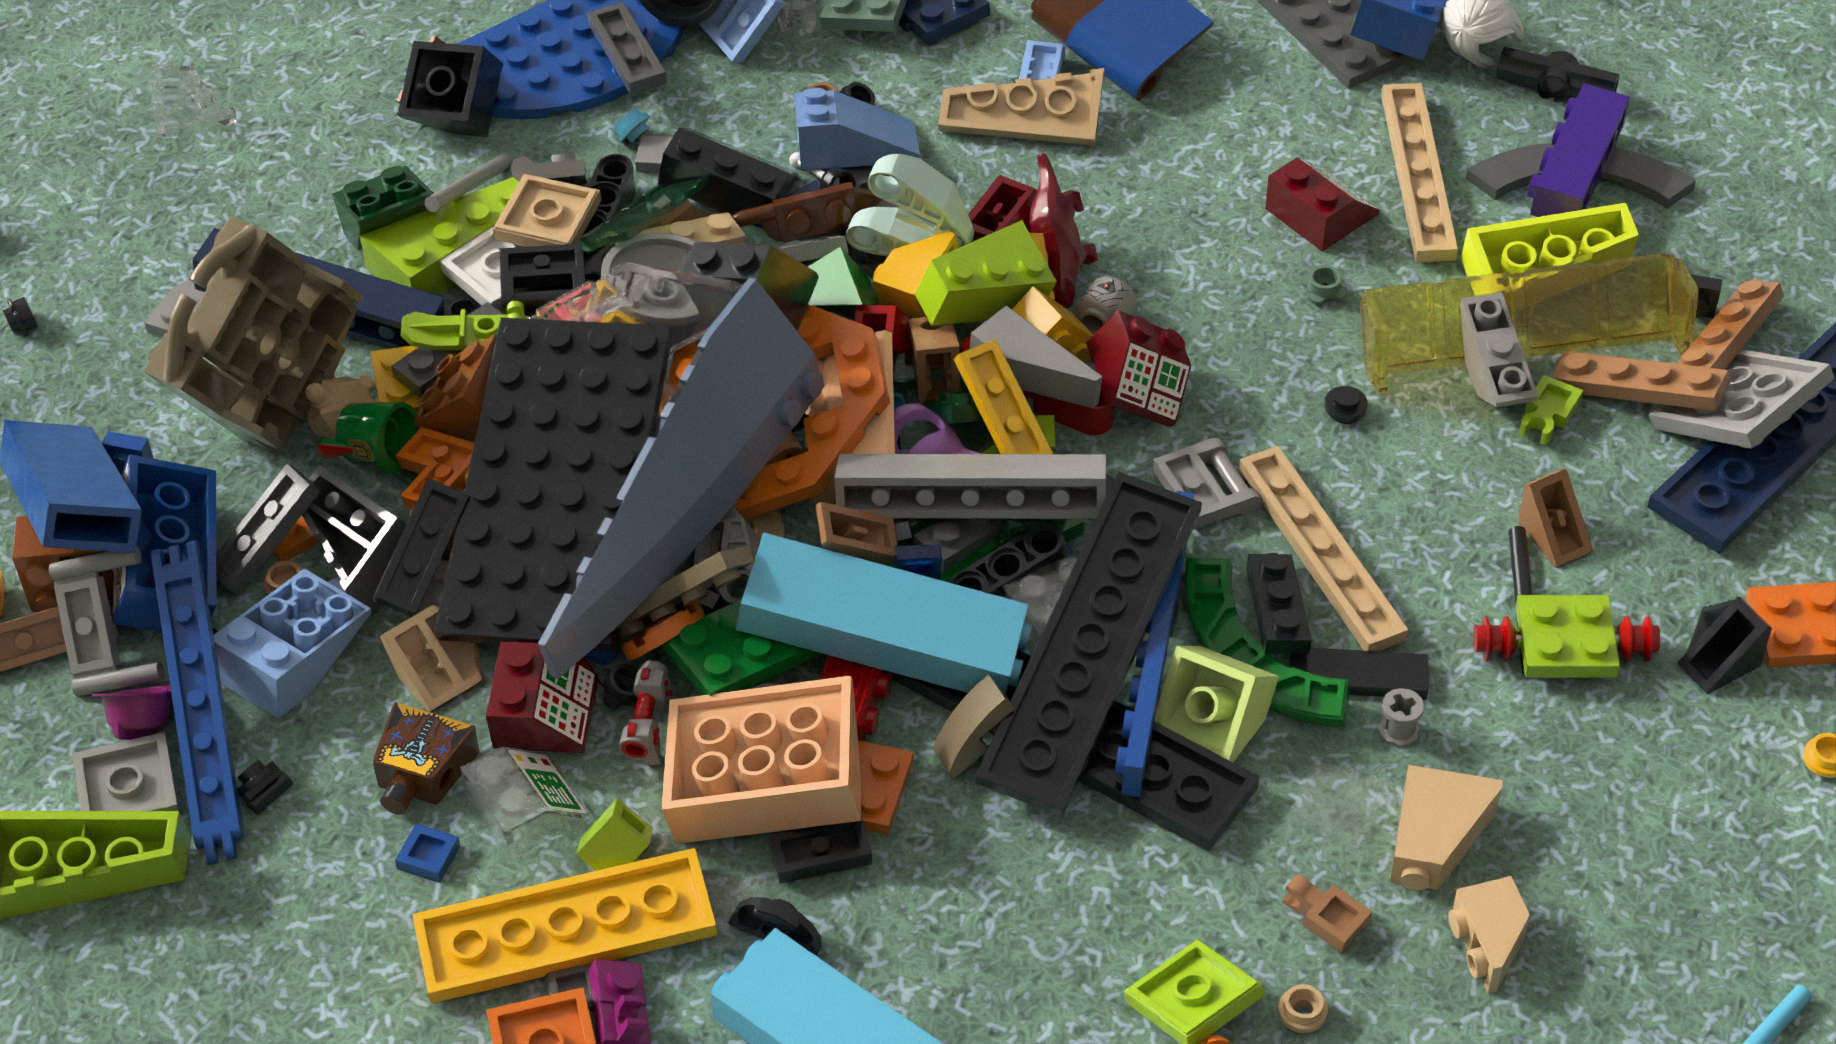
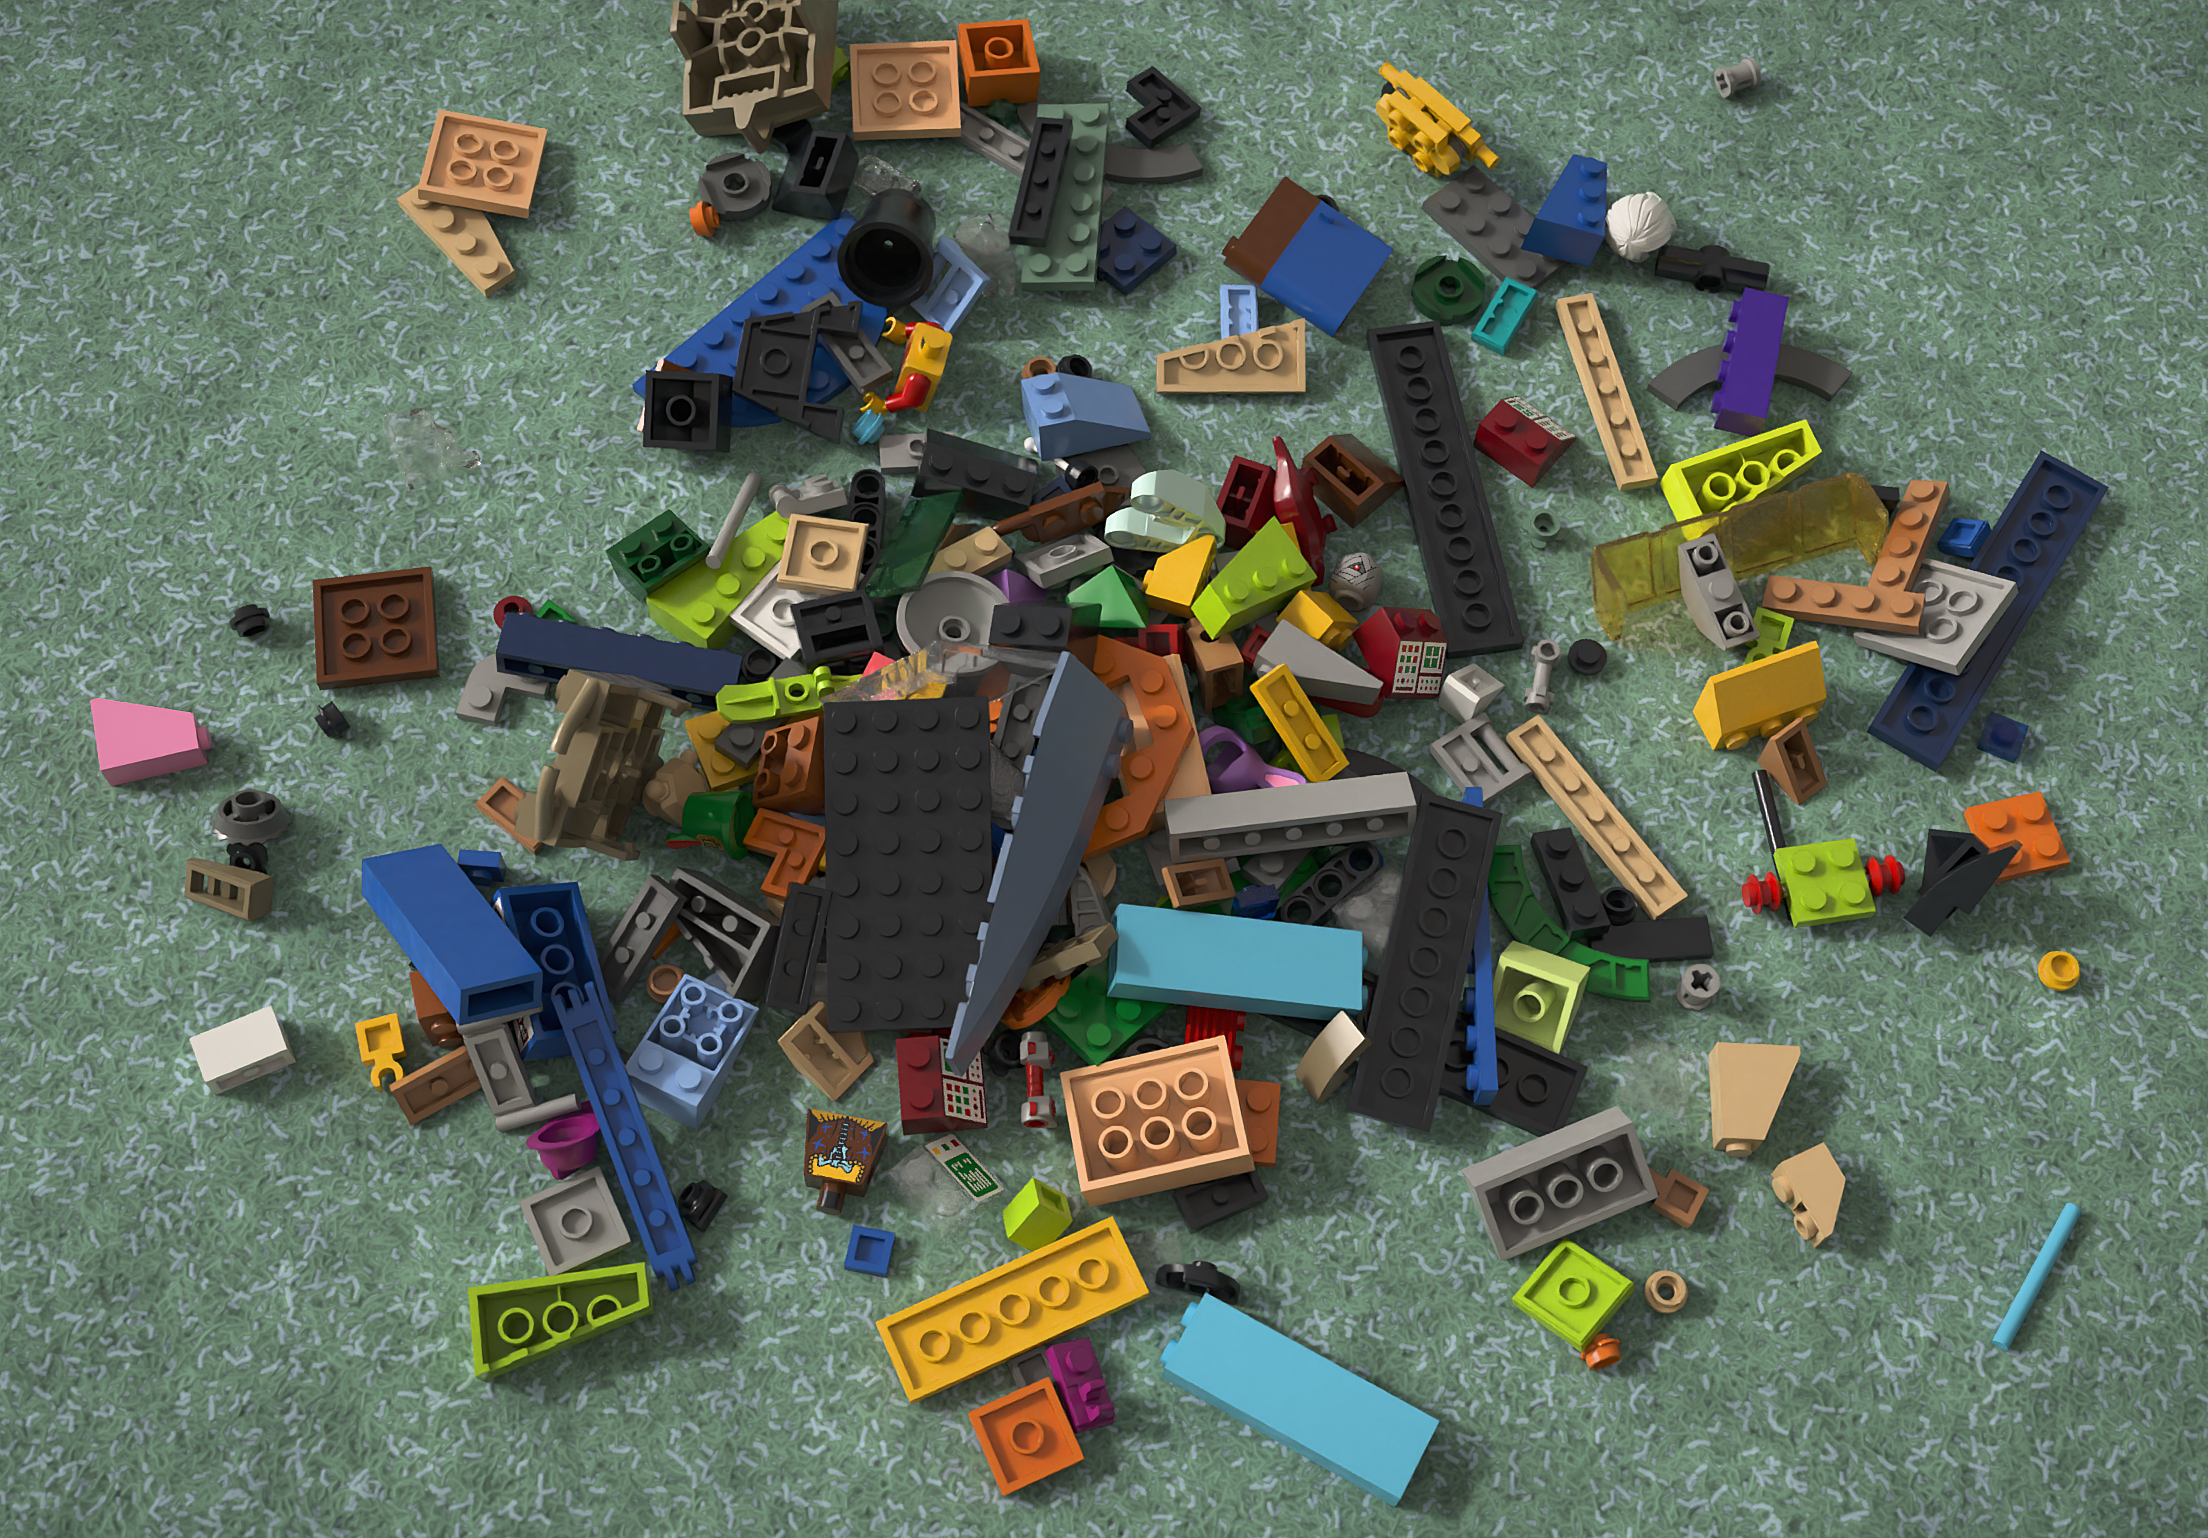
camera: 15 degrees left, 15 degrees up
(88, 244) = (375, 628): none -> reddish brown plate
(180, 422) = (499, 807): none -> medium nougat tile
(553, 53) = (779, 360): none -> black wing
(695, 79) = (919, 368): none -> torso
(1122, 216) = (1351, 477): none -> reddish brown slope
(1200, 879) = (1560, 1182): none -> light grey slope
(1205, 417) = (1468, 692): none -> white slope
(1223, 243) = (1444, 490): none -> black plate
(1270, 84) = (1448, 307): none -> dark green plate
(1299, 401) = (1543, 658): none -> light grey bar
(1323, 96) = (1504, 316): none -> teal plate
(1329, 631) = (1619, 905): none -> black plate
(1524, 442) = (1762, 697): none -> yellow slope
(1719, 647) = (1961, 887): none -> black slope
(1792, 338) = (1964, 537): none -> blue tile
(1803, 529) = (2002, 737): none -> clear blue plate

